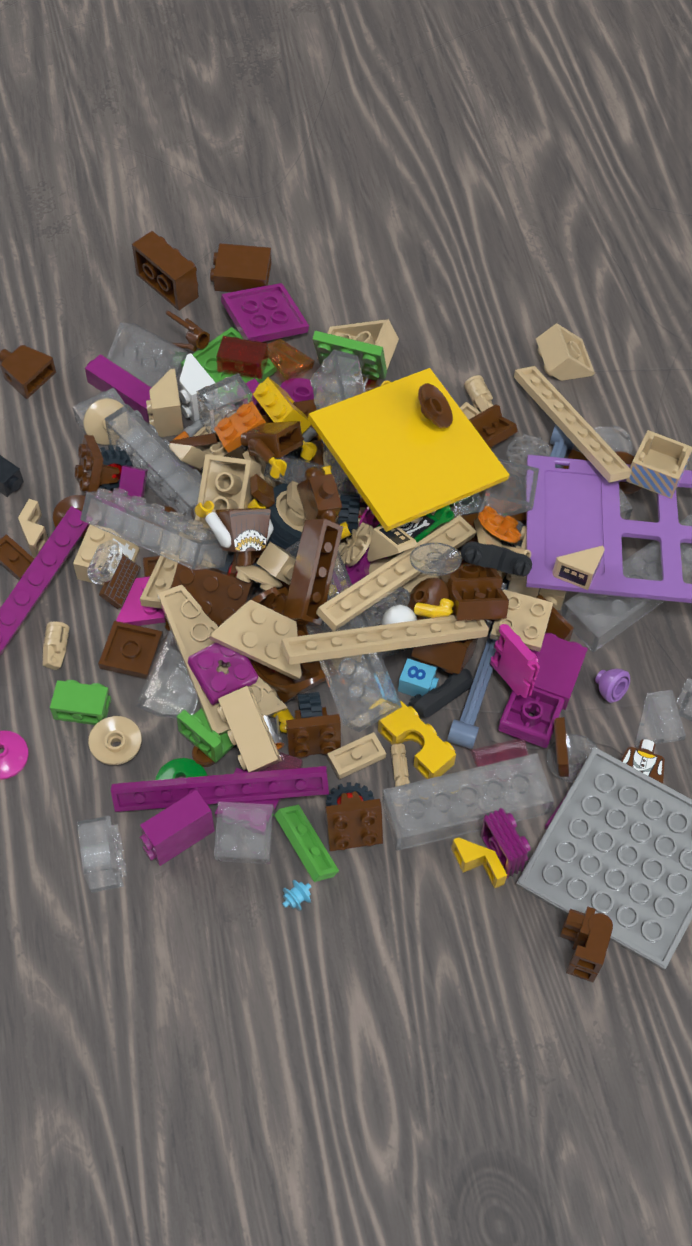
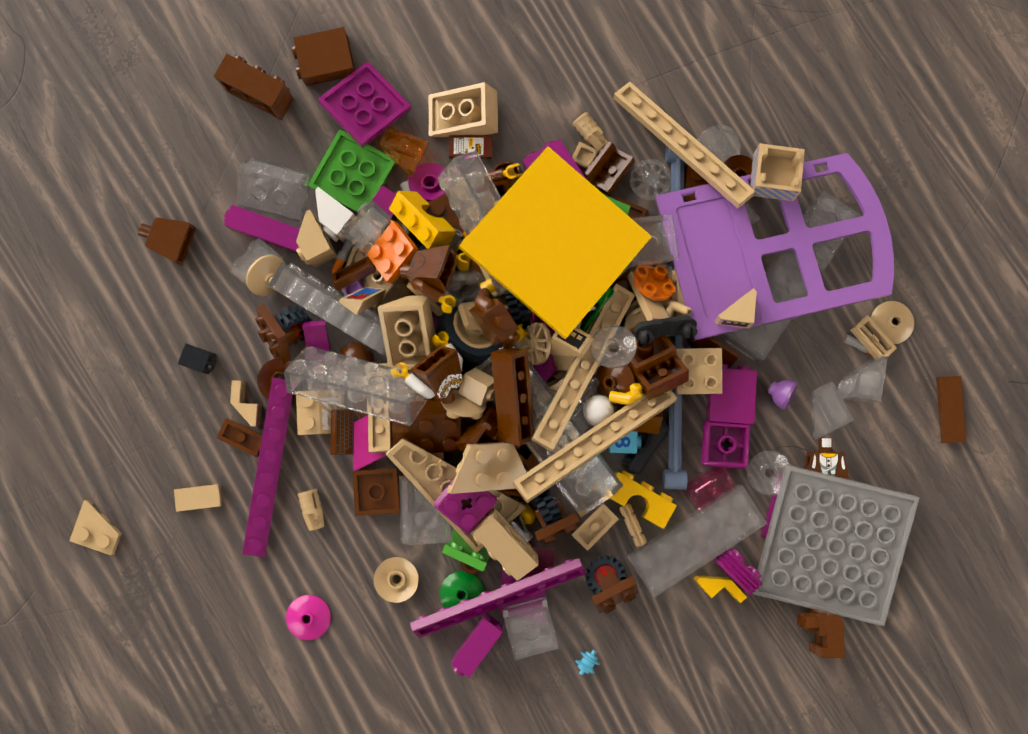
camera: 15 degrees left, 25 degrees up
(80, 702) = (354, 555): bright green brick -> none
(101, 853) = (425, 686): clear brick -> none
(107, 563) = (324, 425): clear beam -> none
(195, 335) = (313, 155): reddish brown plant -> none
(242, 357) = (363, 165): clear red brick -> none
(262, 490) = (440, 327): reddish brown tile -> none
(306, 843) = (580, 616): bright green plate -> none
(370, 356) = (464, 141): bright green plate -> none
(435, 406) = (569, 195): reddish brown dish -> none
(517, 662) = (704, 414): dark pink plate -> none
(561, 747) = (760, 472): reddish brown tile -> none
(564, 354) = (653, 60): tan slope -> none

